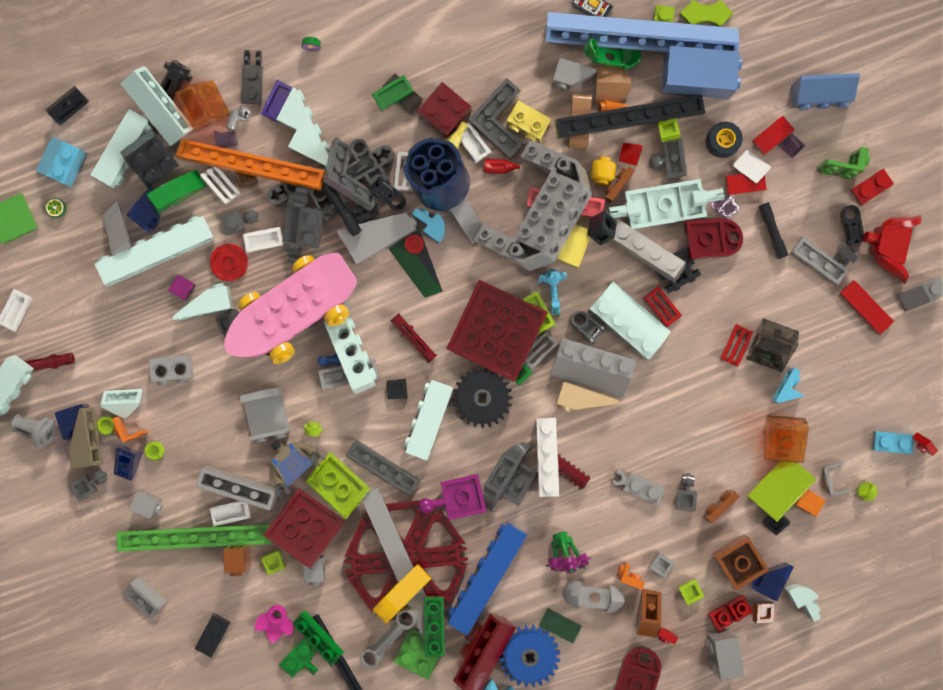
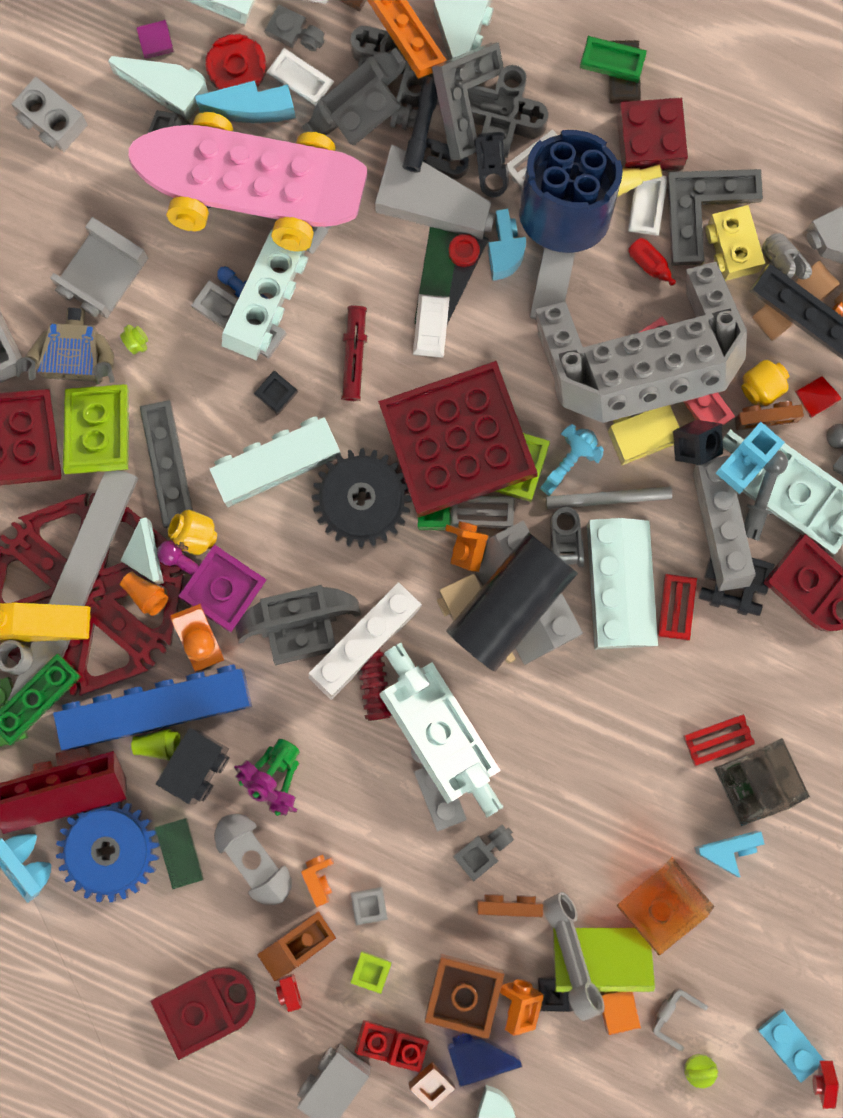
camera: 45 degrees right, 5 degrees down
(254, 275) = (248, 105): none -> medium azure slope
(415, 518) = (142, 552): none -> light aqua slope
(425, 486) = (192, 532): none -> yellow head
(433, 291) = (431, 325): none -> white tile
(435, 533) = (146, 595): none -> orange cone
(474, 529) = (197, 637): none -> orange tile
(504, 590) = (156, 744): none -> lime cone
(530, 586) = (193, 767): none -> black brick
(549, 371) = (468, 546): none -> orange bracket
(557, 107) = (786, 257): none -> light grey hinge
(586, 288) = (611, 497): none -> light grey piece
(593, 379) = (511, 602): none -> black brick
(618, 463) = (440, 732): none -> light aqua plate
(632, 213) = (750, 457): none -> medium azure brick
(643, 204) = (757, 514): none -> dark grey pin
(769, 540) = (524, 1006): none -> orange bracket
(792, 512) = (584, 996): none -> light grey piece

